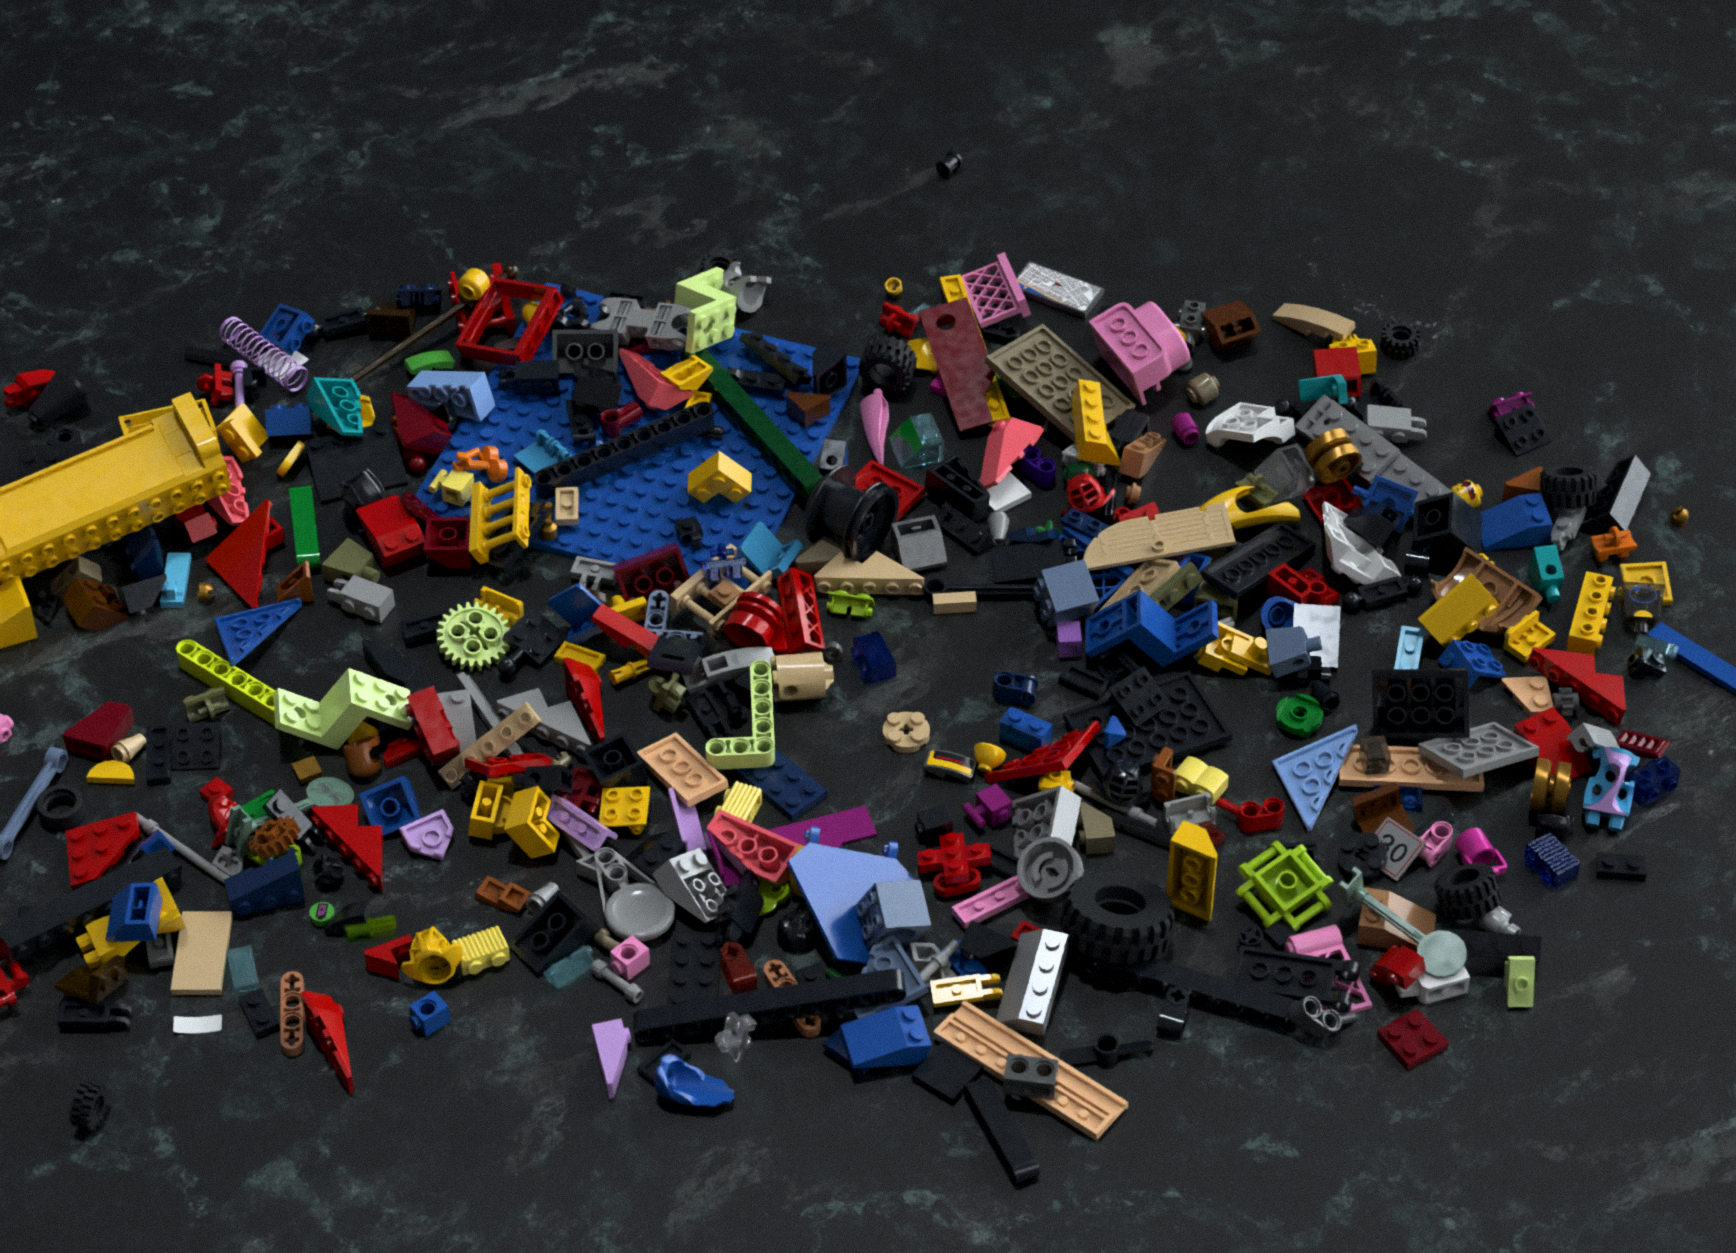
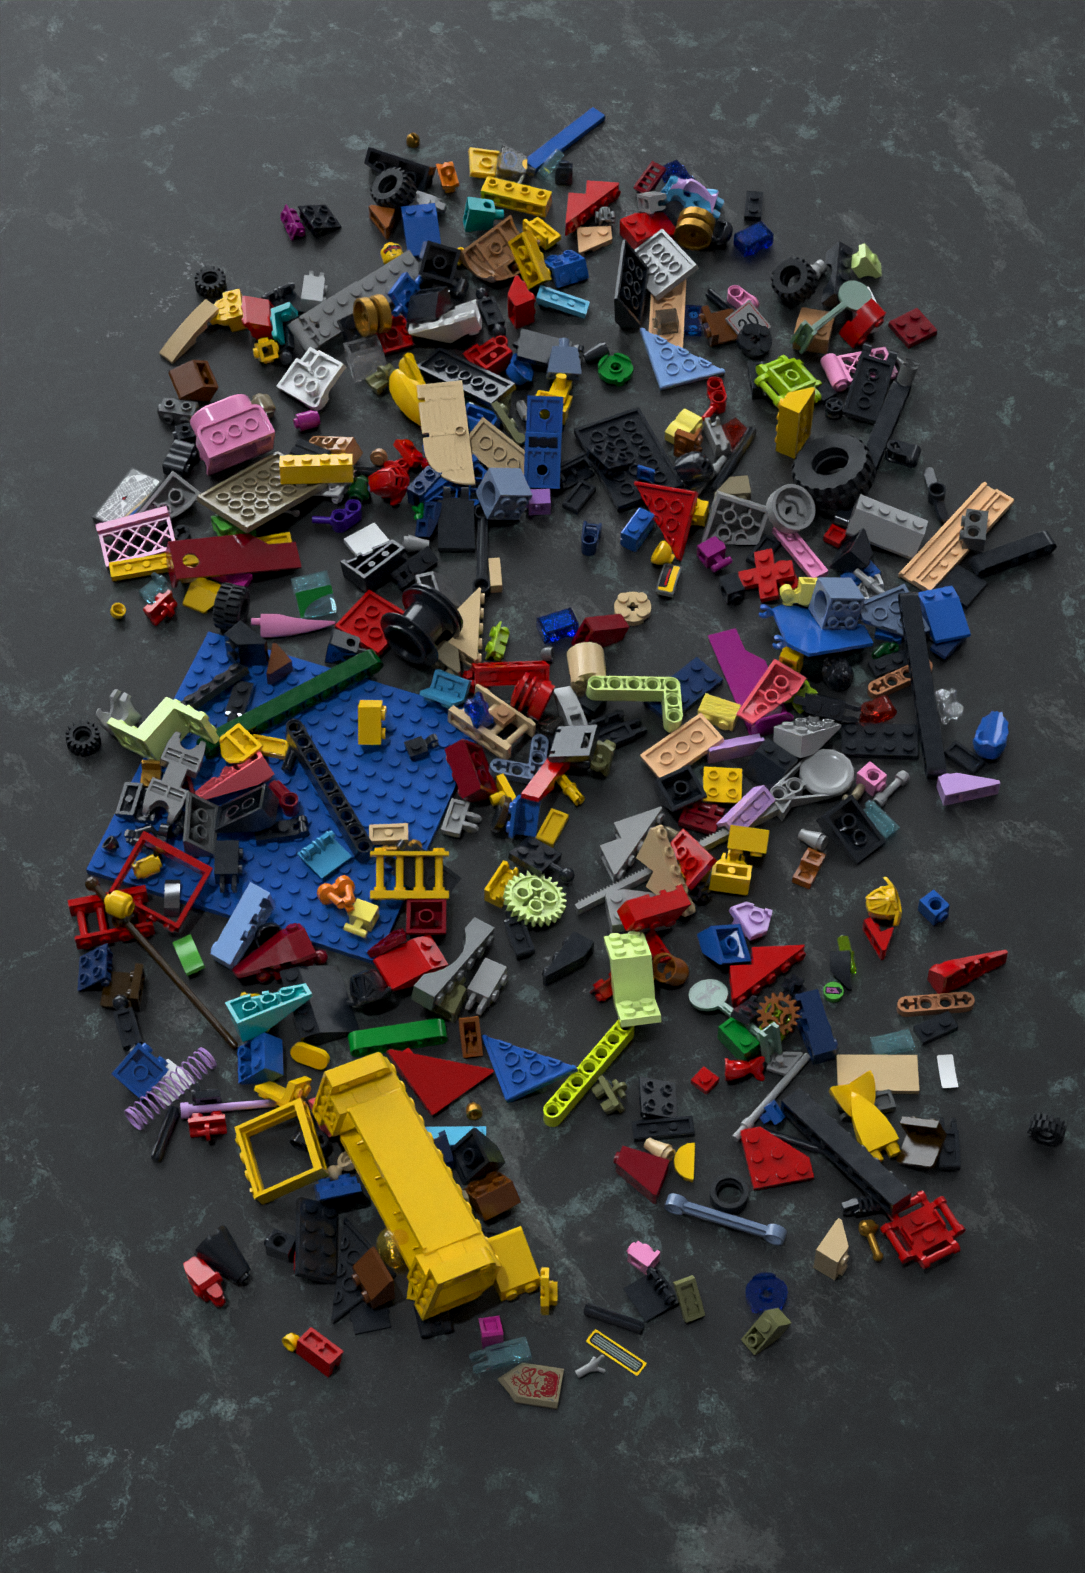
camera: 90 degrees left, 10 degrees up
(135, 913) = (869, 1105): blue slope -> none
(307, 770) = (679, 1015): pearl gold tile -> none
(419, 583) = (433, 986): none -> arch
(482, 950) = (868, 873): light yellow brick -> none
(550, 779) = (713, 826): black torso -> none
(584, 691) = (602, 816): red wedge -> none
(860, 693) = (601, 630): none -> dark red slope
(932, 889) = (801, 594): none -> light yellow brick
(967, 988) = (890, 569): hinge -> none
(1005, 447) = (334, 527): coral wedge -> none
(1059, 315) = (173, 493): none -> light grey wedge
(1286, 384) = (272, 350): none -> yellow brick
(1390, 608) = (520, 304): none -> red slope
(1476, 848) = (749, 276): dark pink piece -> none

